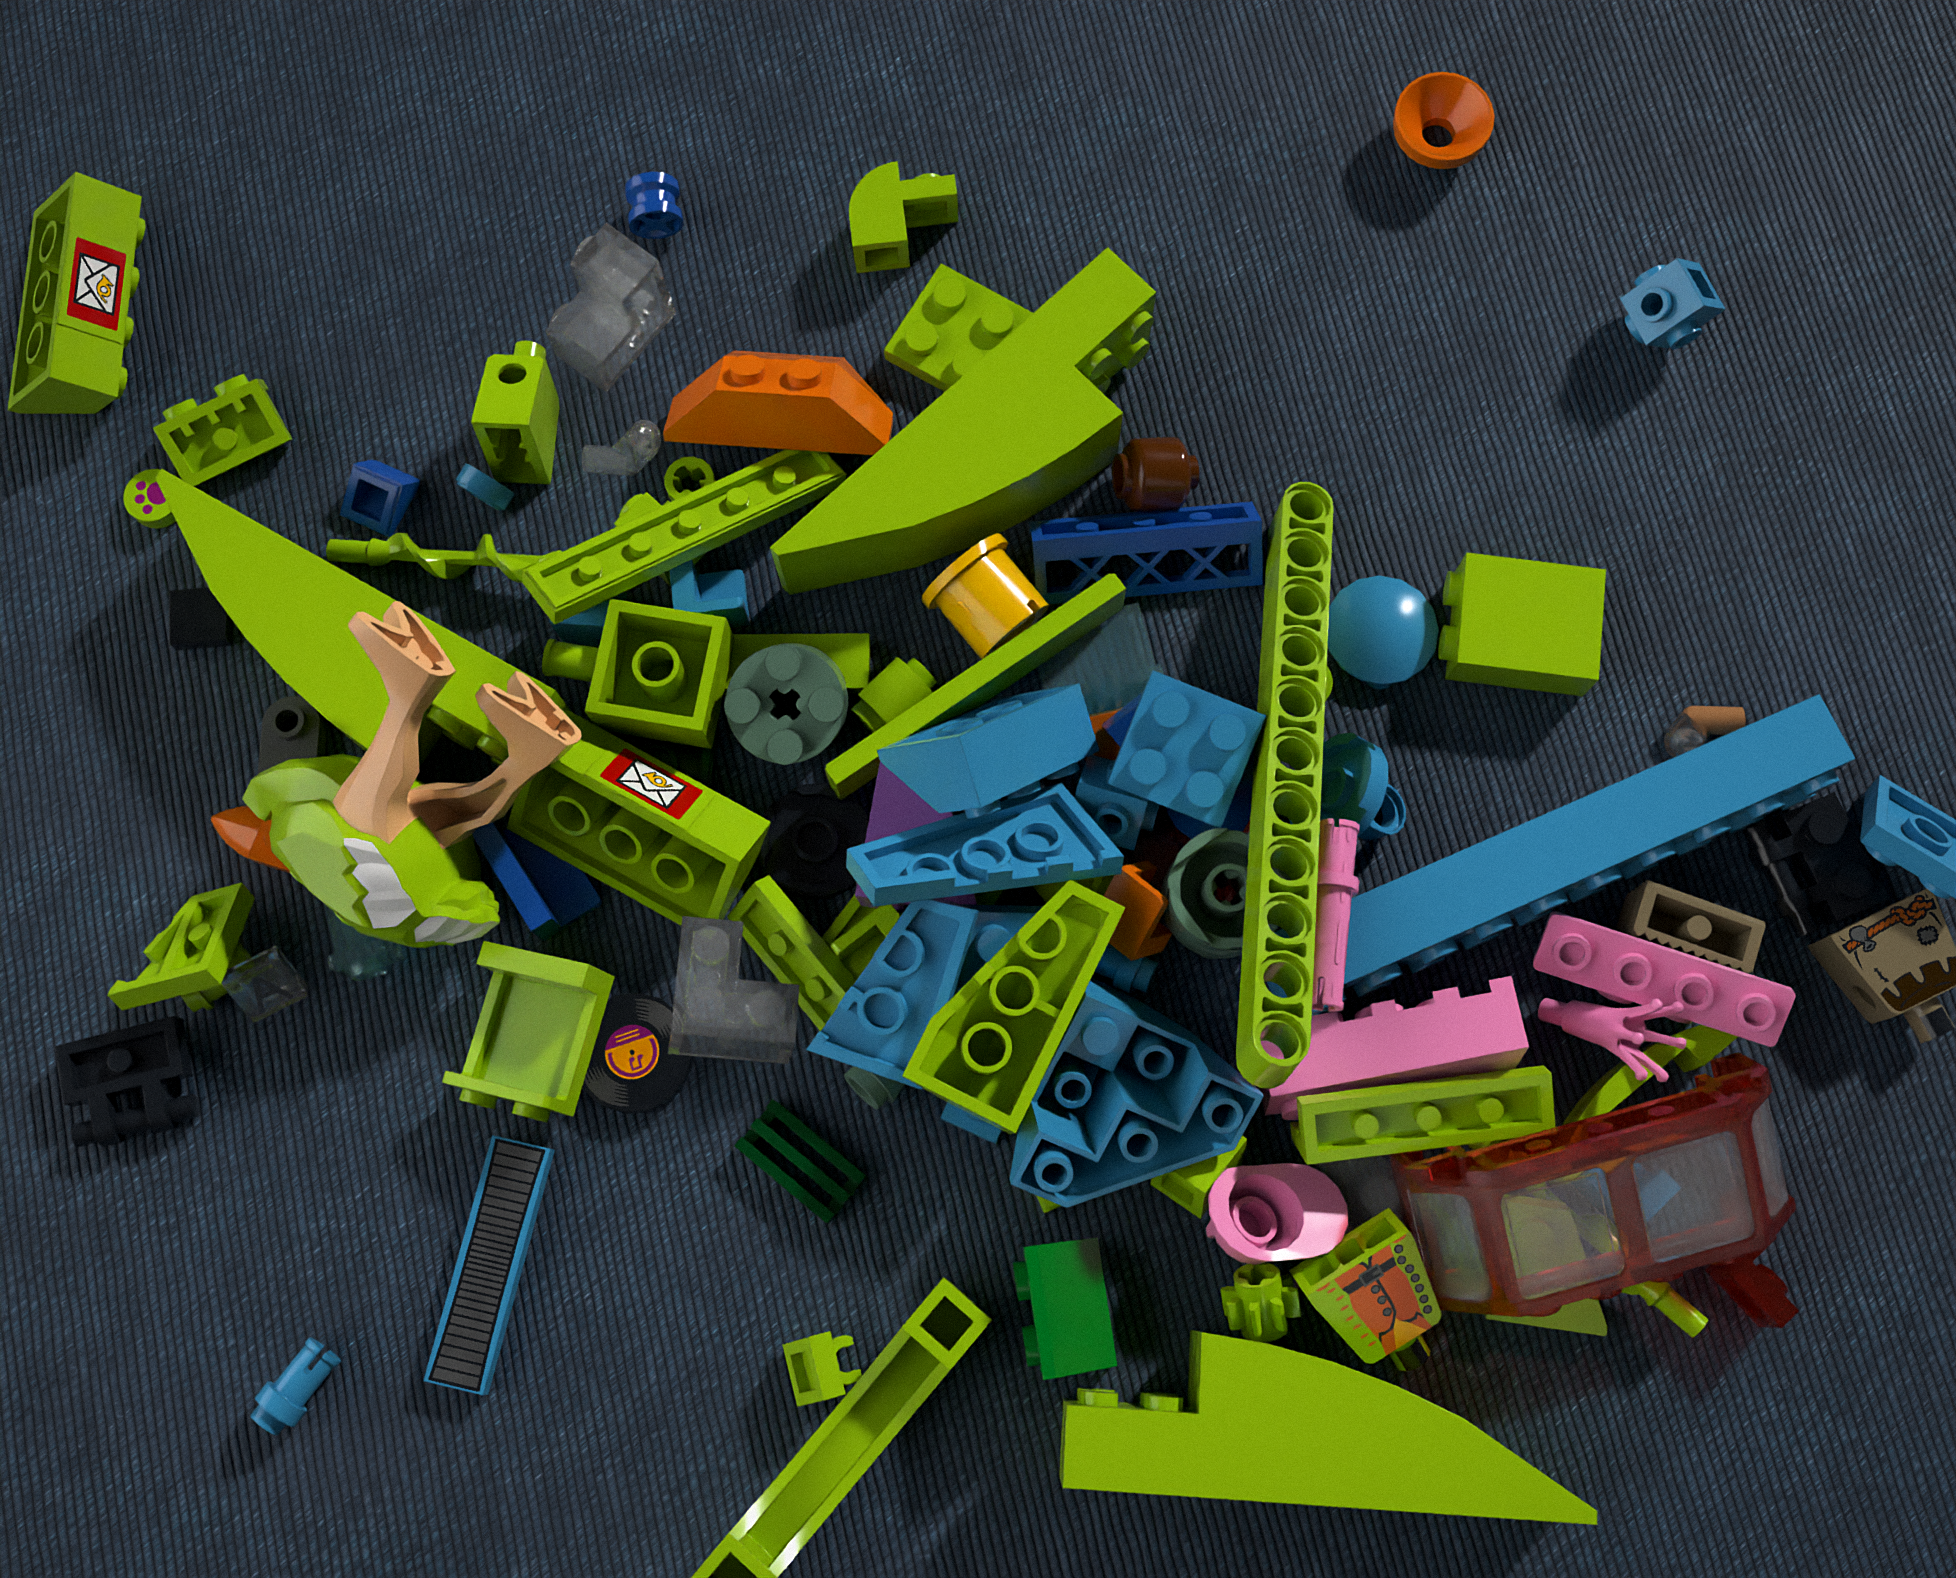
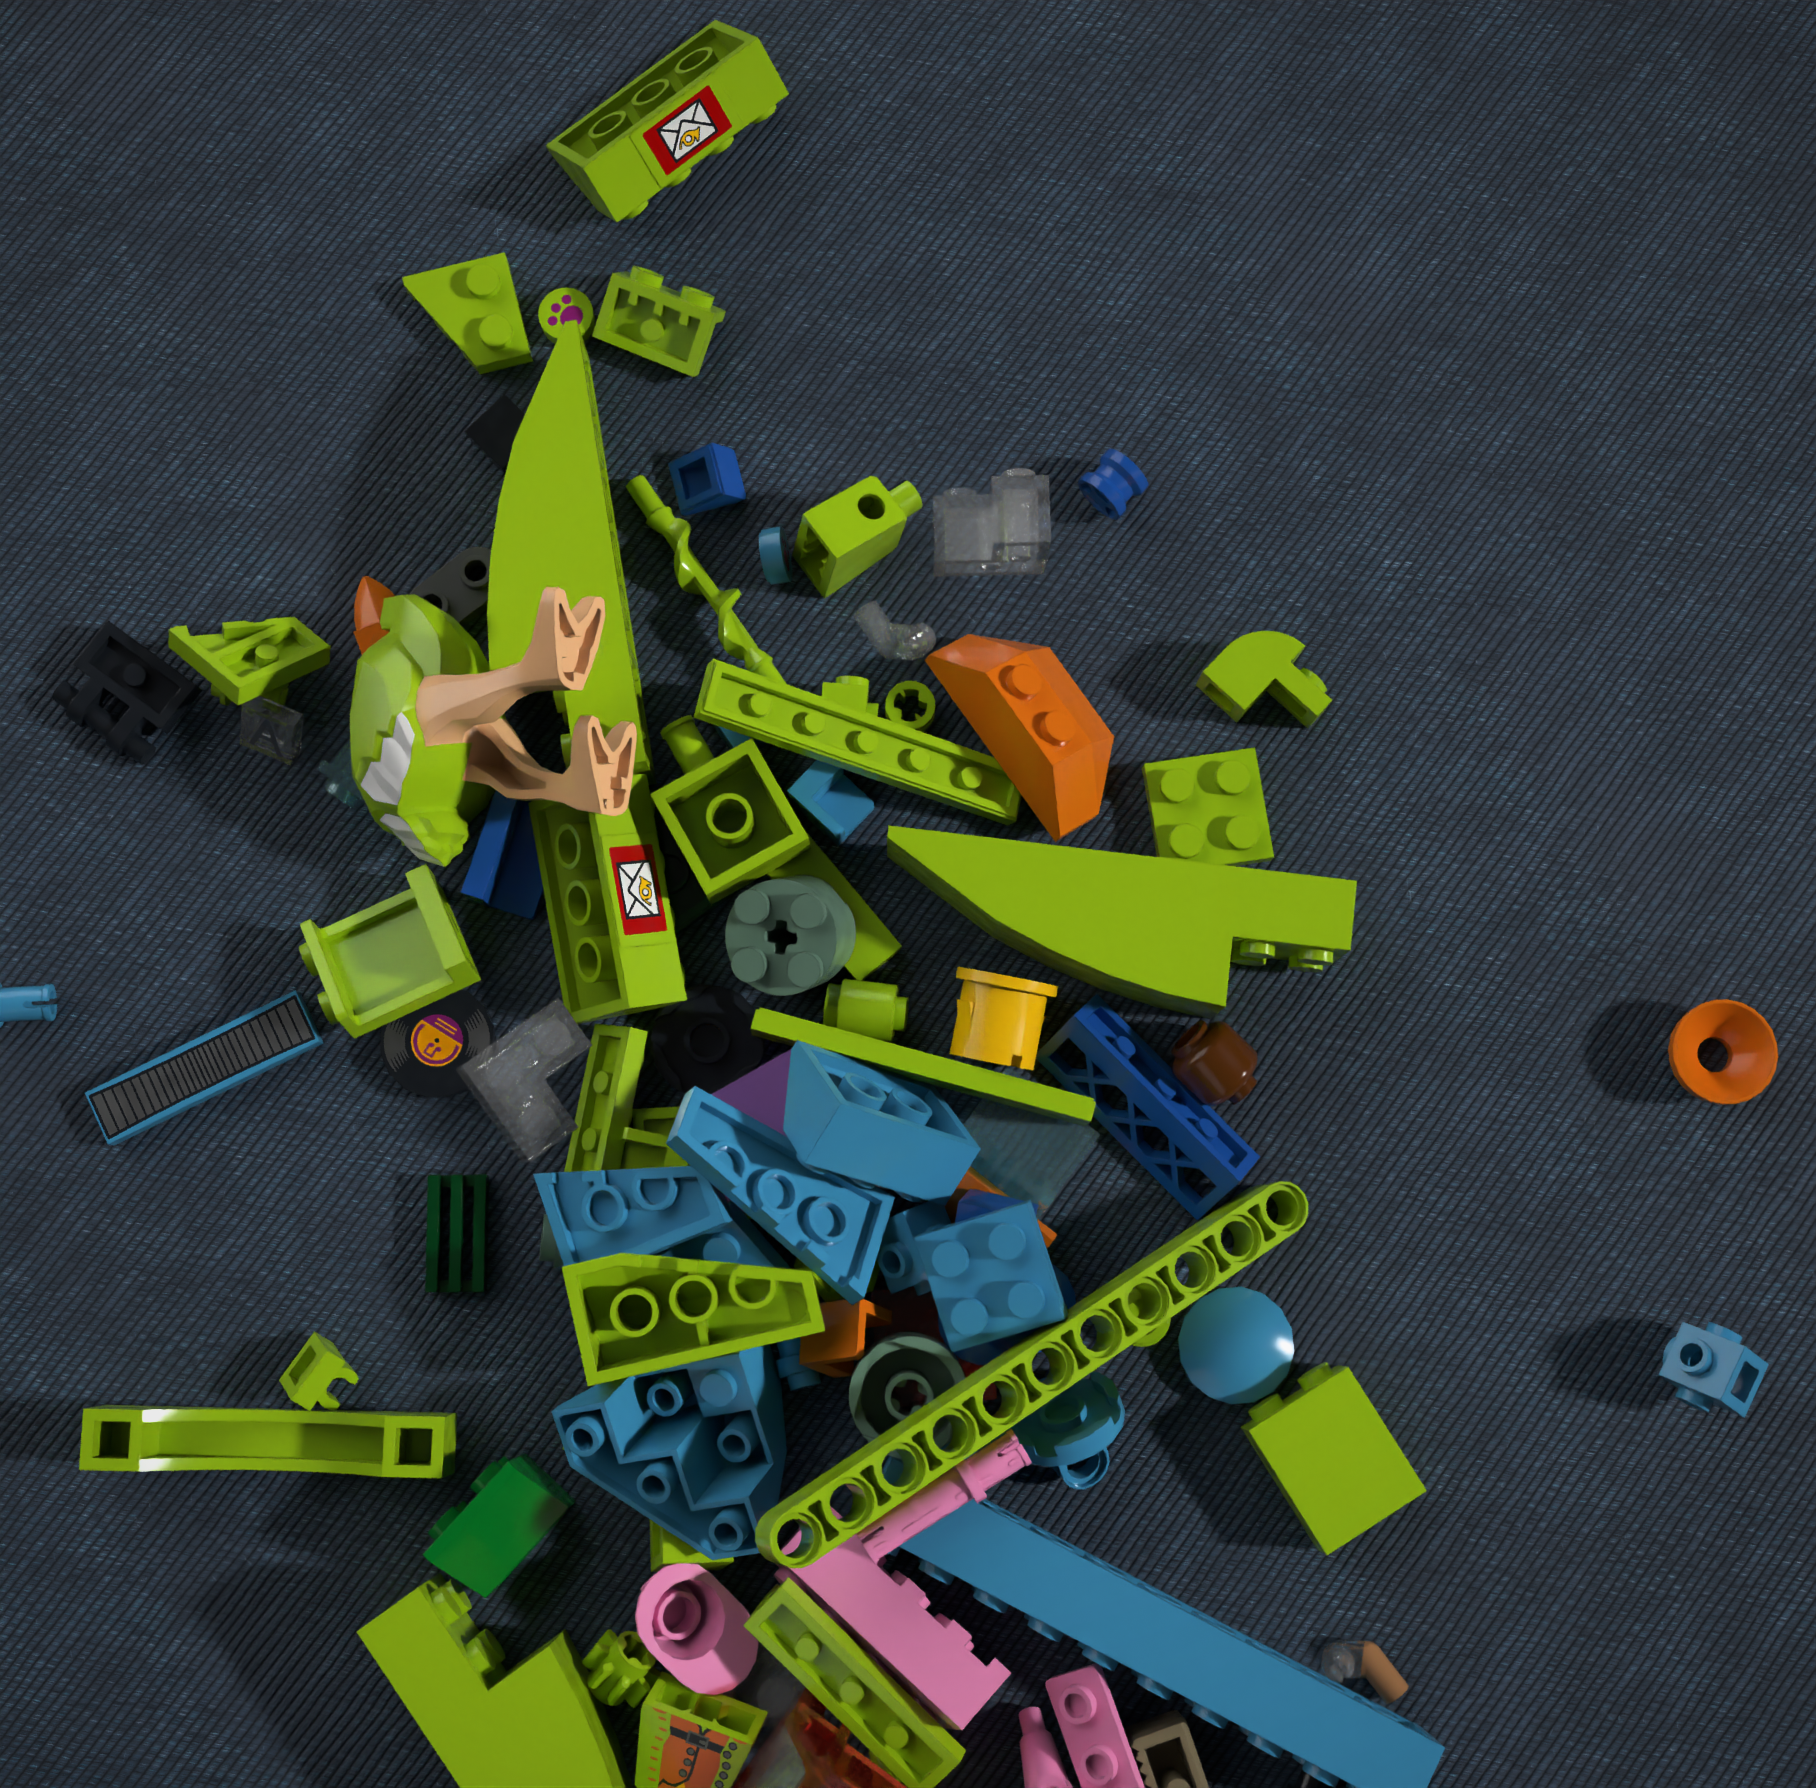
camera: 45 degrees right, 5 degrees up
(84, 562) = (475, 310): none -> lime wing

